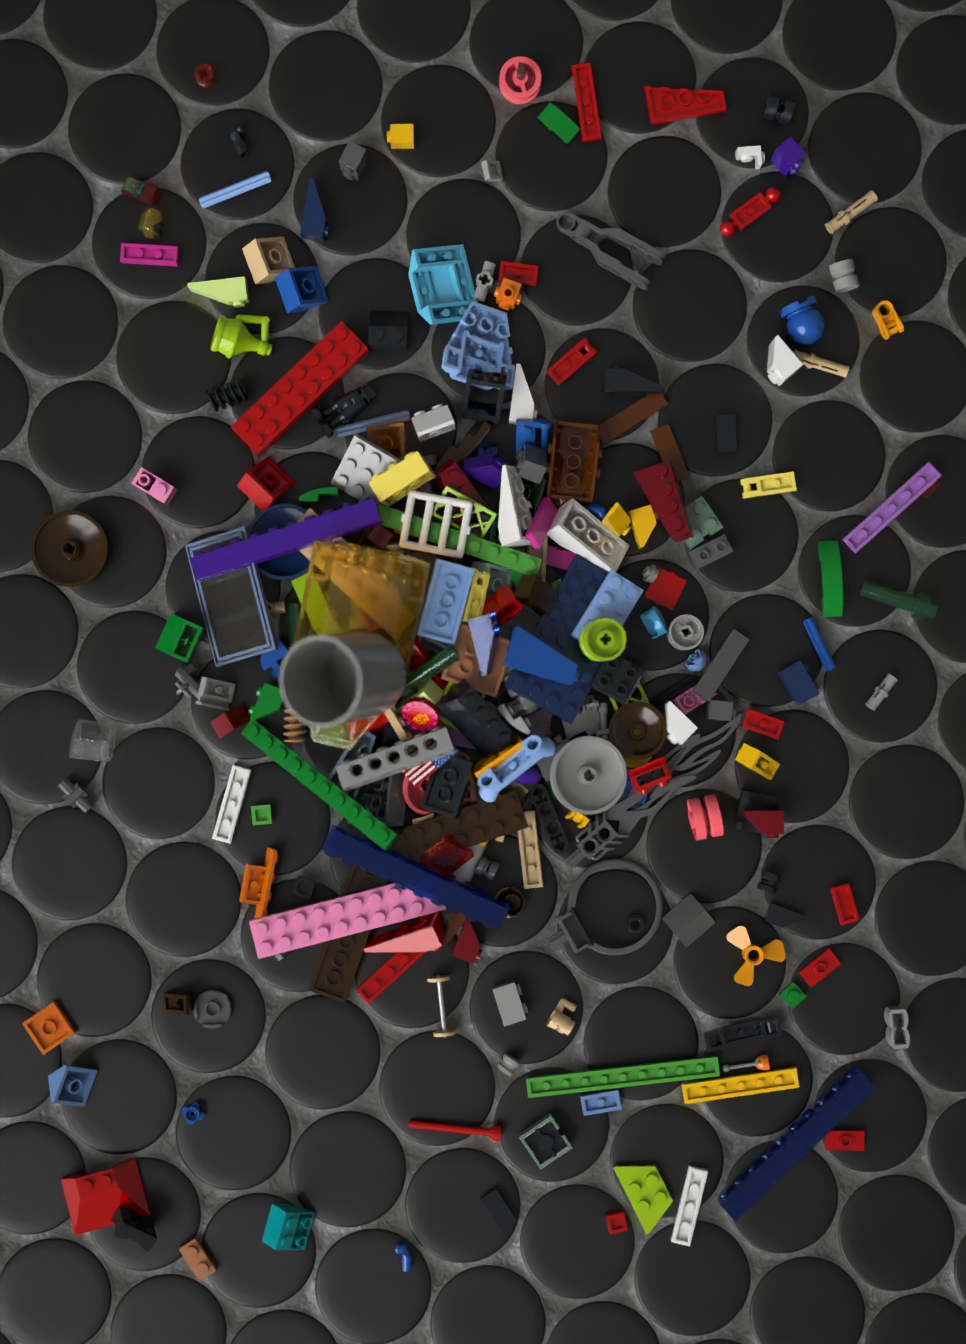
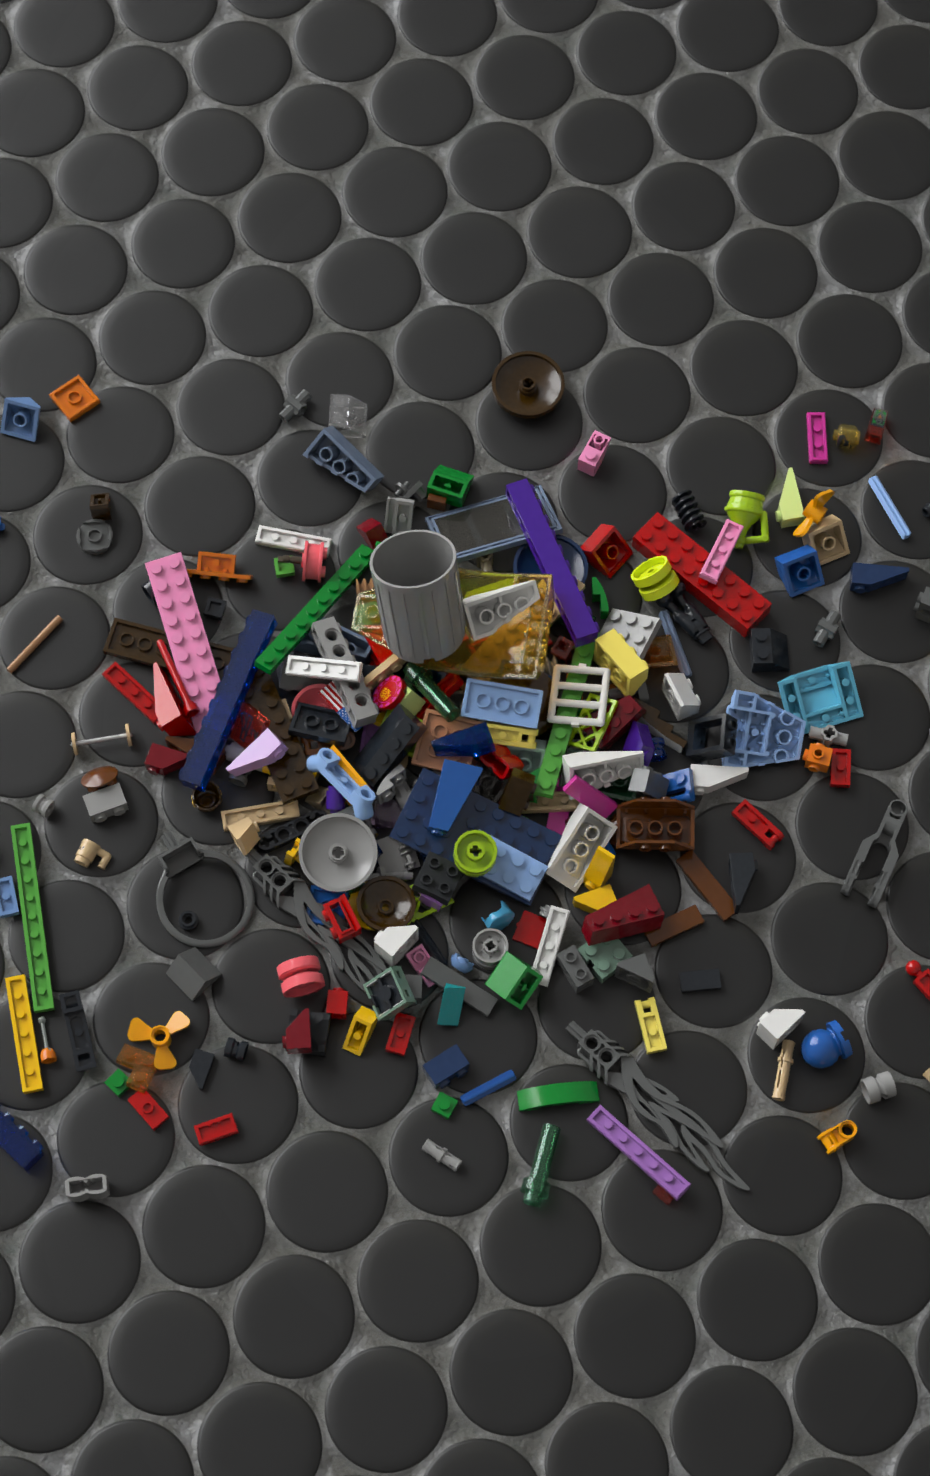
camera: 90 degrees right, 20 degrees down
(146, 747) = (343, 459): none -> sand blue wedge
(199, 653) = (436, 502): none -> reddish brown tile
(244, 266) = (814, 512): none -> light orange piece
(262, 787) = (310, 561): none -> coral wheel
(282, 365) = (721, 551): none -> bright pink tile
(306, 436) = (655, 578): none -> neon yellow wheel
(330, 1072) = (34, 644): none -> medium nougat piece
(347, 602) = (494, 608): none -> white wedge
(368, 269) = (826, 628): none -> dark grey axle
(395, 779) = (324, 668): none -> white tile
(417, 916) = (189, 707): none -> red piece
(475, 843) = (261, 752): none -> lavender slope
(483, 1008) = (99, 777): none -> reddish brown dish
(555, 866) = (245, 834): none -> tan slope
(685, 575) = (550, 942): none -> white tile
(719, 491) = (636, 972): none -> dark grey slope
(722, 610) = (514, 980): none -> slope
(729, 732) = (389, 993): none -> piece
(729, 783) = (337, 1003): none -> red brick
(739, 673) = (451, 1005): none -> teal slope
(777, 972) = (142, 1065): none -> clear orange plate
(823, 515) = (668, 1102): none -> dark grey piece
(833, 686) = (444, 1105): none -> green plate

